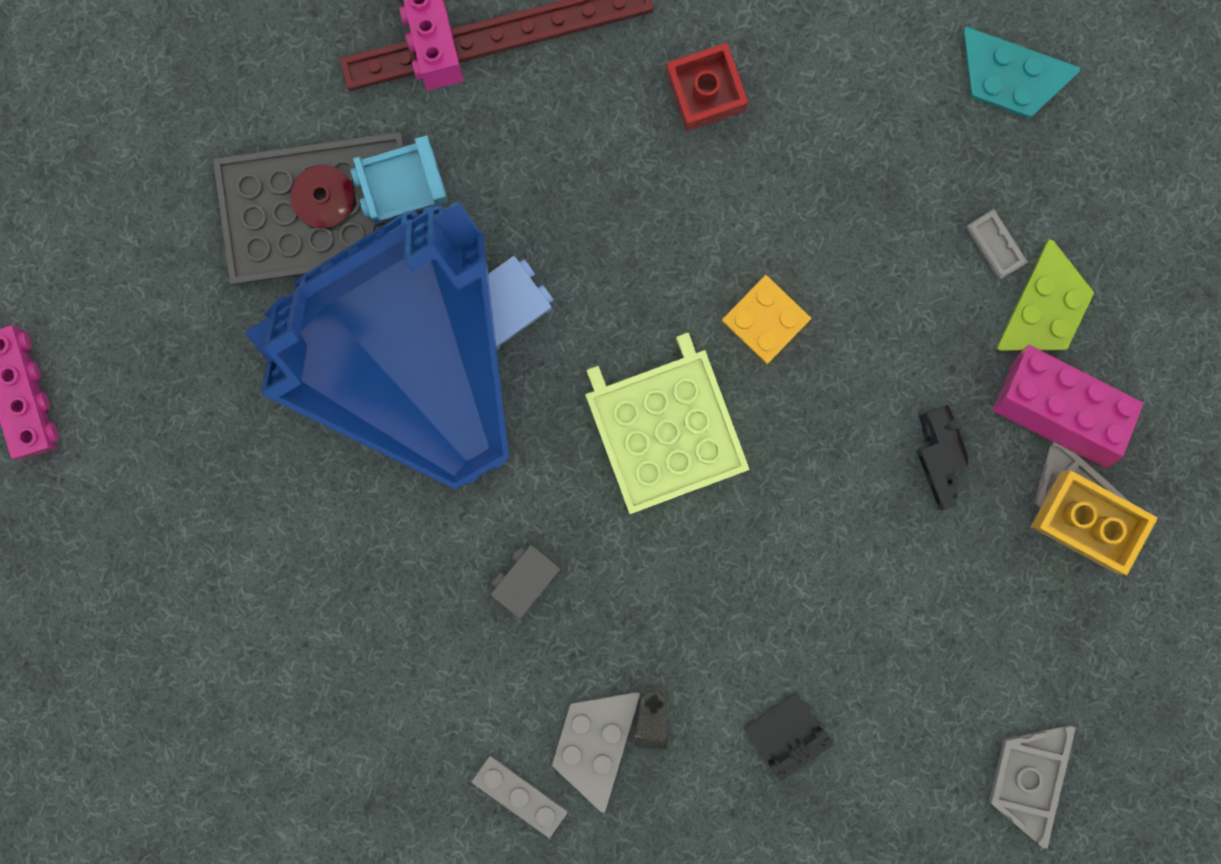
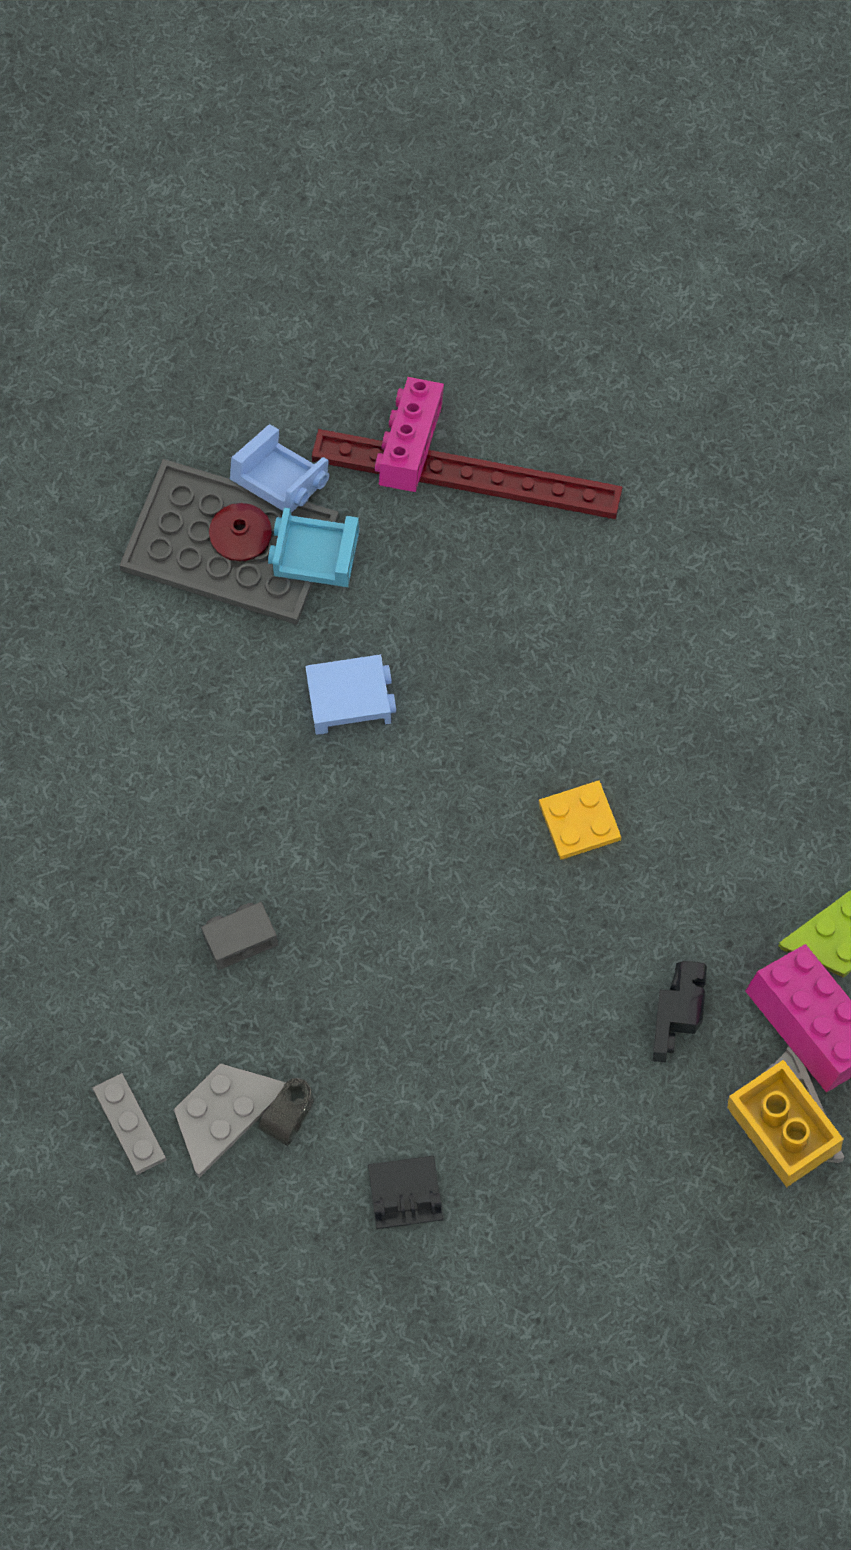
camera: 25 degrees right, 20 degrees down
(325, 121) = (276, 471): none -> light blue panel
(397, 346) = (238, 680): blue piece -> none
(666, 429) = (437, 868): yellowish green plate -> none
(706, 87) = (627, 597): red brick -> none
(996, 244) = (824, 853): light grey plate -> none
(1031, 779) = (612, 1342): light grey wing -> none

